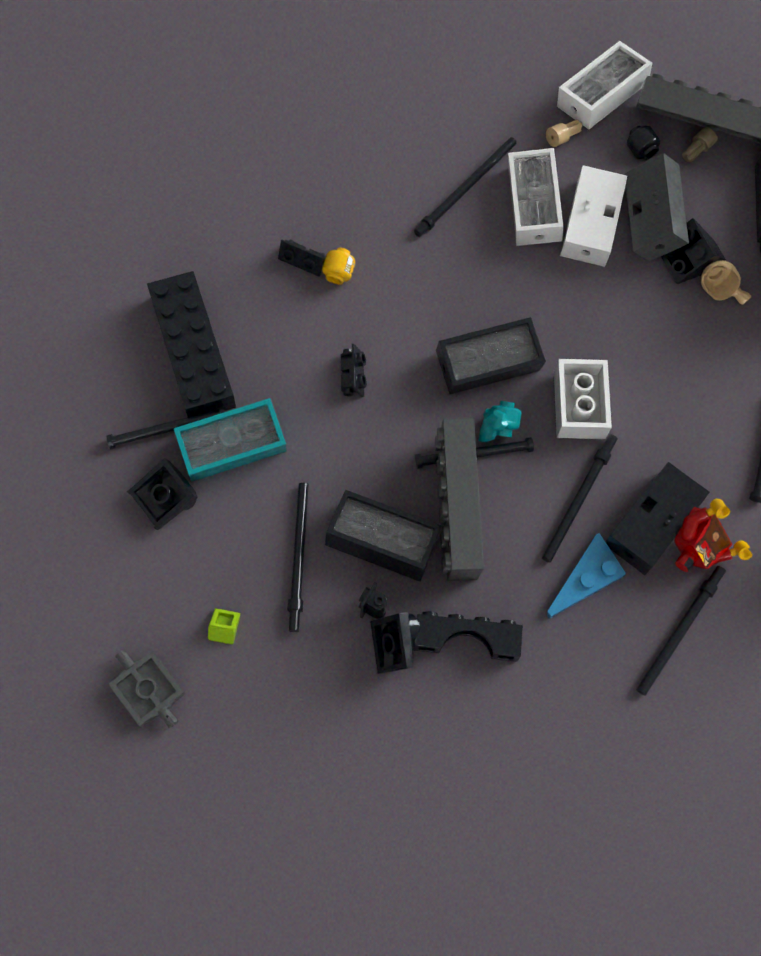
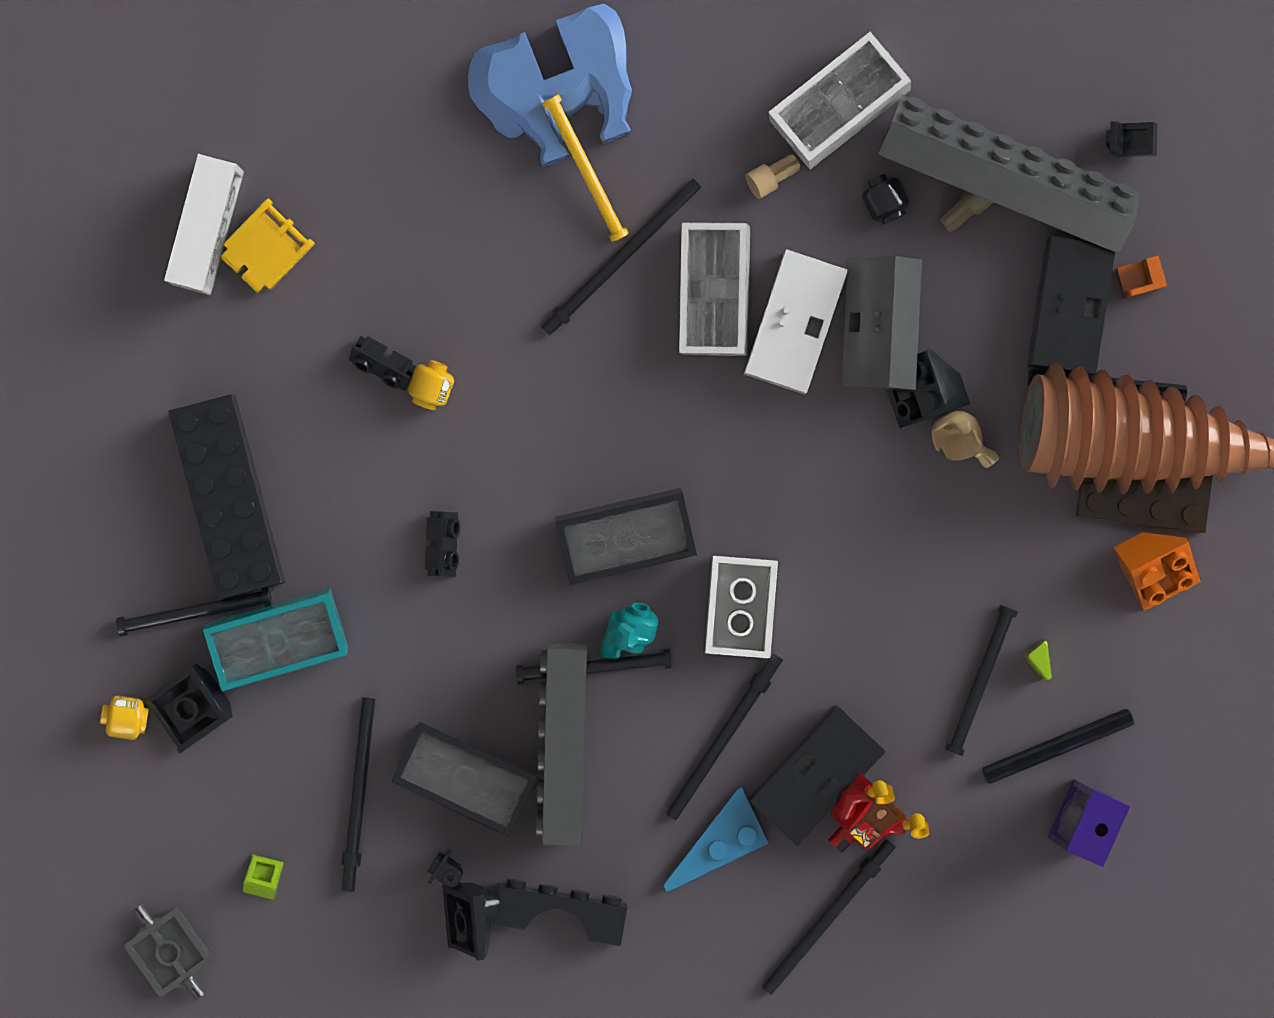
camera: 10 degrees right, 20 degrees up
(112, 505) = (124, 717): none -> yellow head
(172, 169) = (204, 224): none -> white brick
(215, 190) = (265, 248): none -> yellow plate
(400, 97) = (511, 89): none -> medium blue animal
(461, 169) = (585, 168): none -> yellow bar

